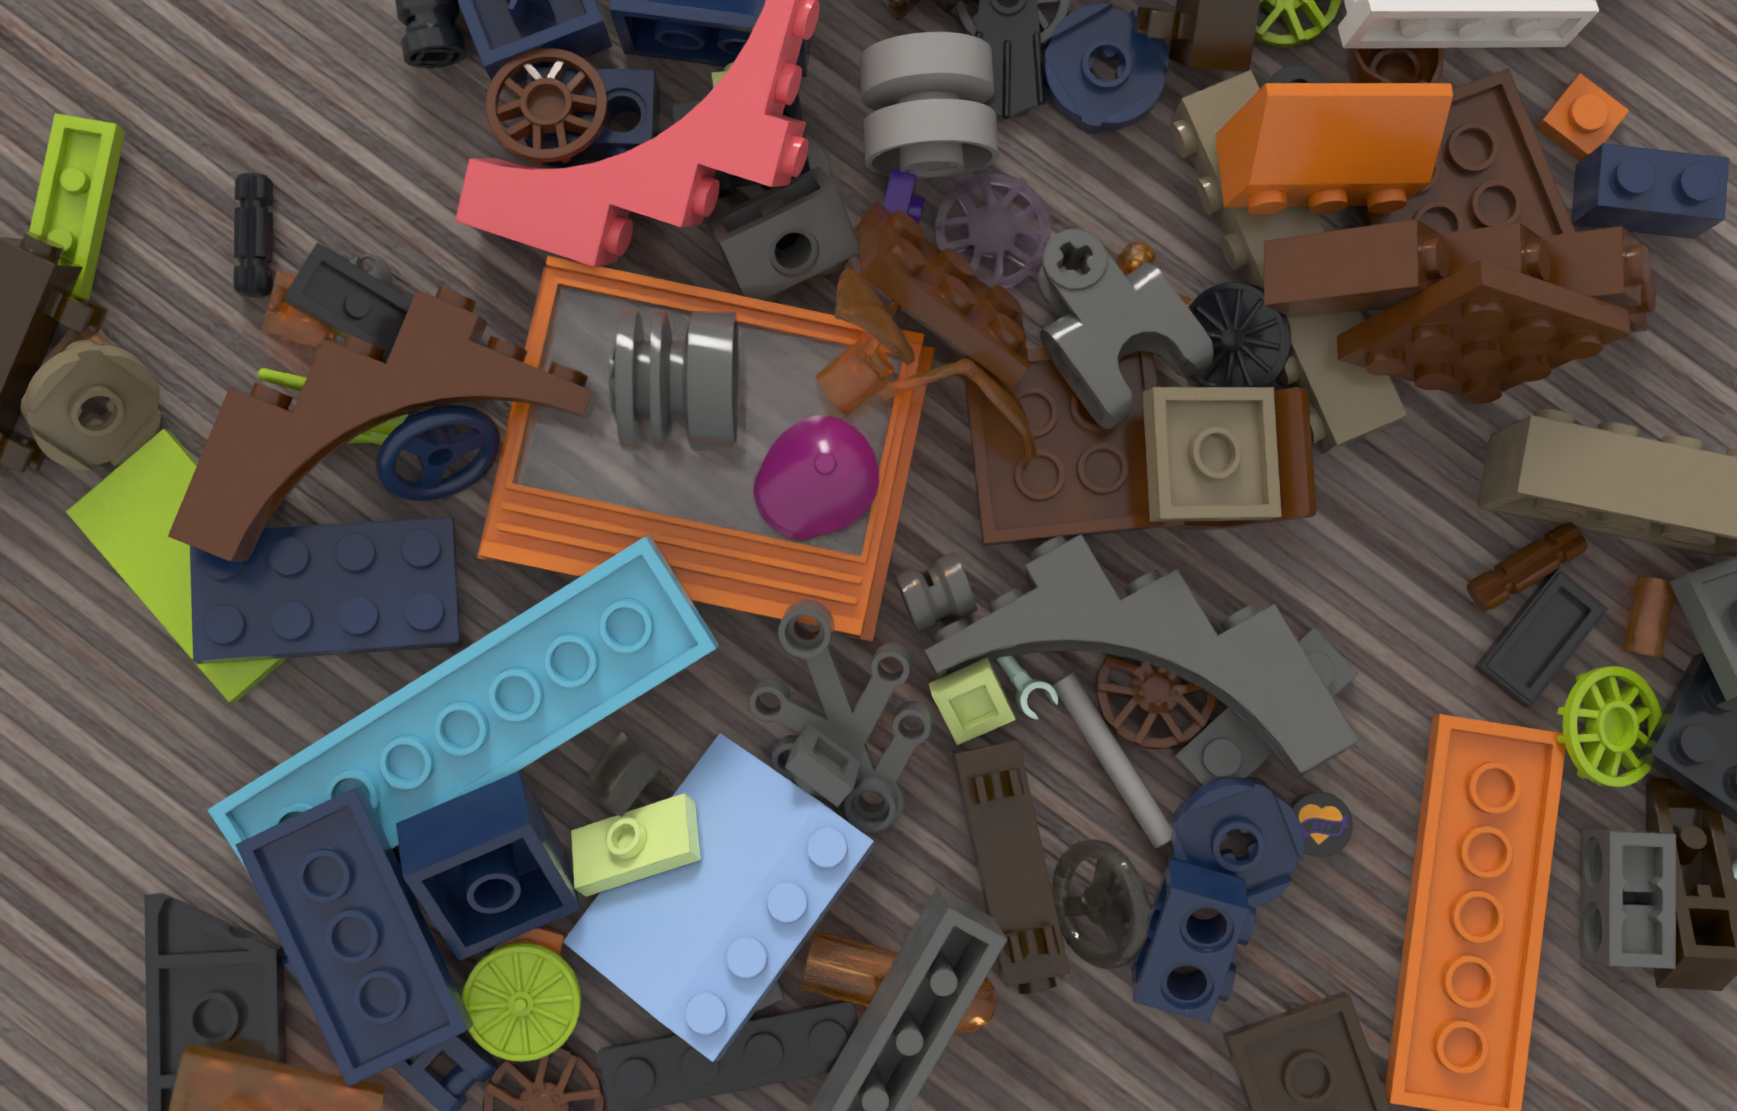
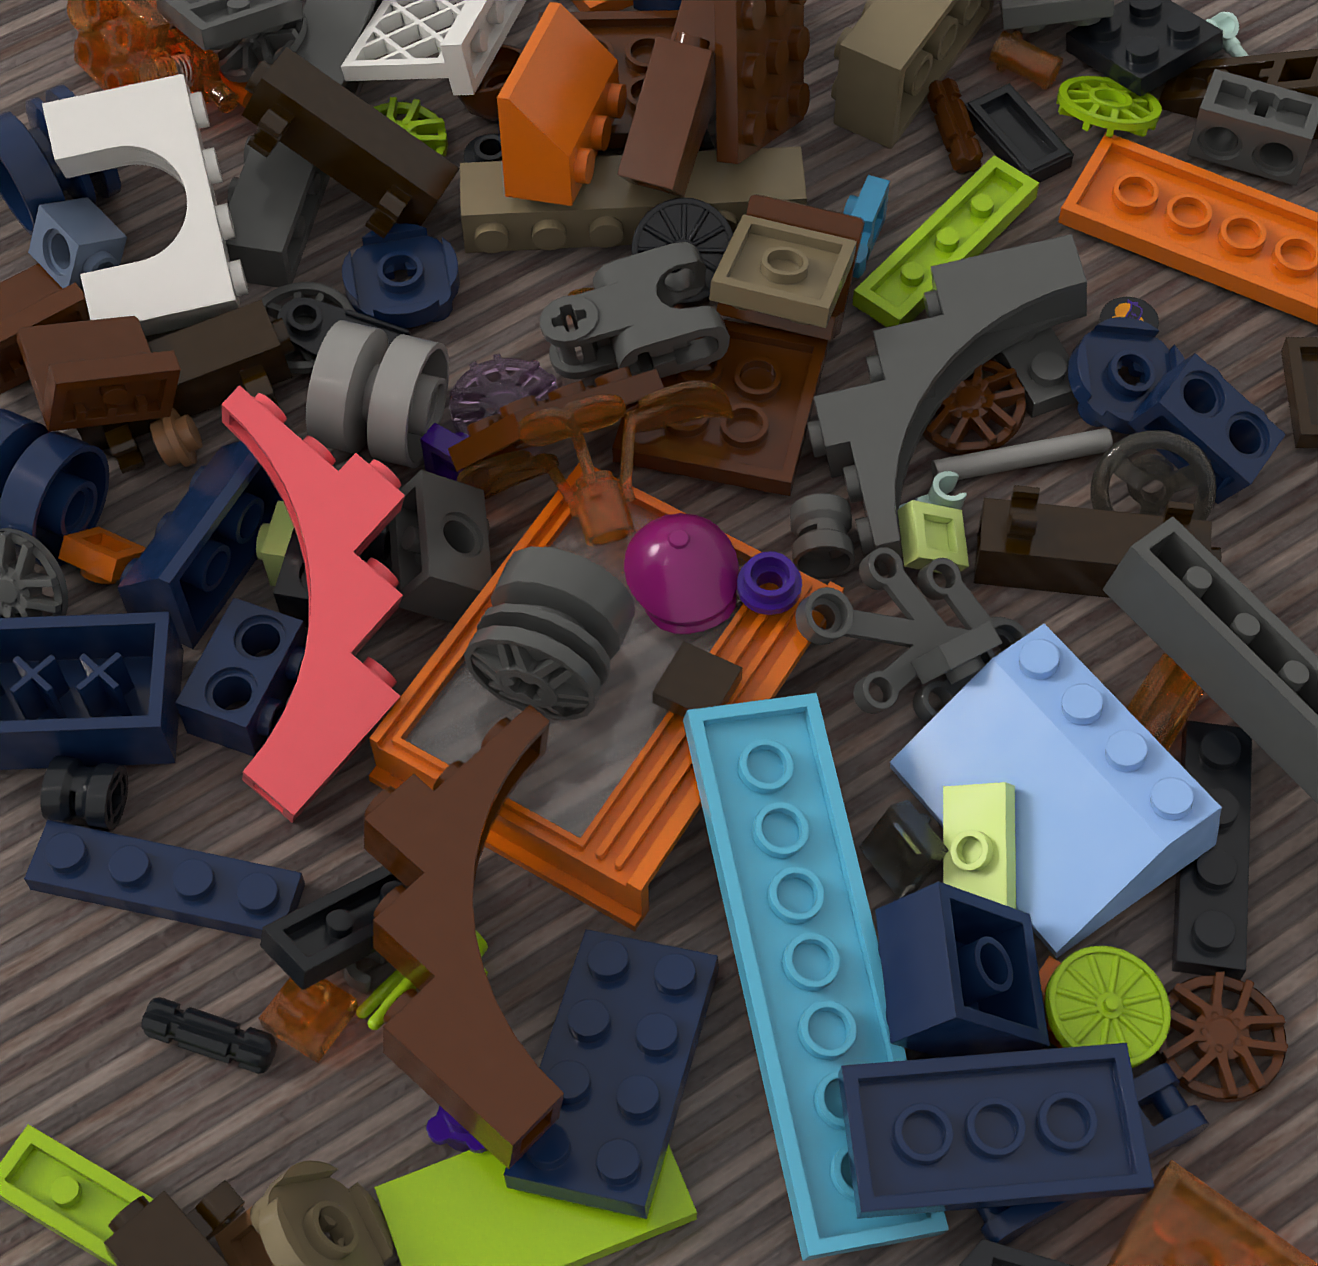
camera: 65 degrees left, 25 degrees down
(381, 135) = (162, 879): none -> dark blue plate
(435, 441) = (508, 908): dark blue piece -> none
(547, 105) = (226, 687): reddish brown wheel -> none
(696, 533) = (696, 681): none -> dark brown tile
(816, 547) = (769, 568): none -> dark purple plate
(1349, 510) = (872, 207): none -> dark azure plate
(1354, 606) = (952, 233): none -> lime plate

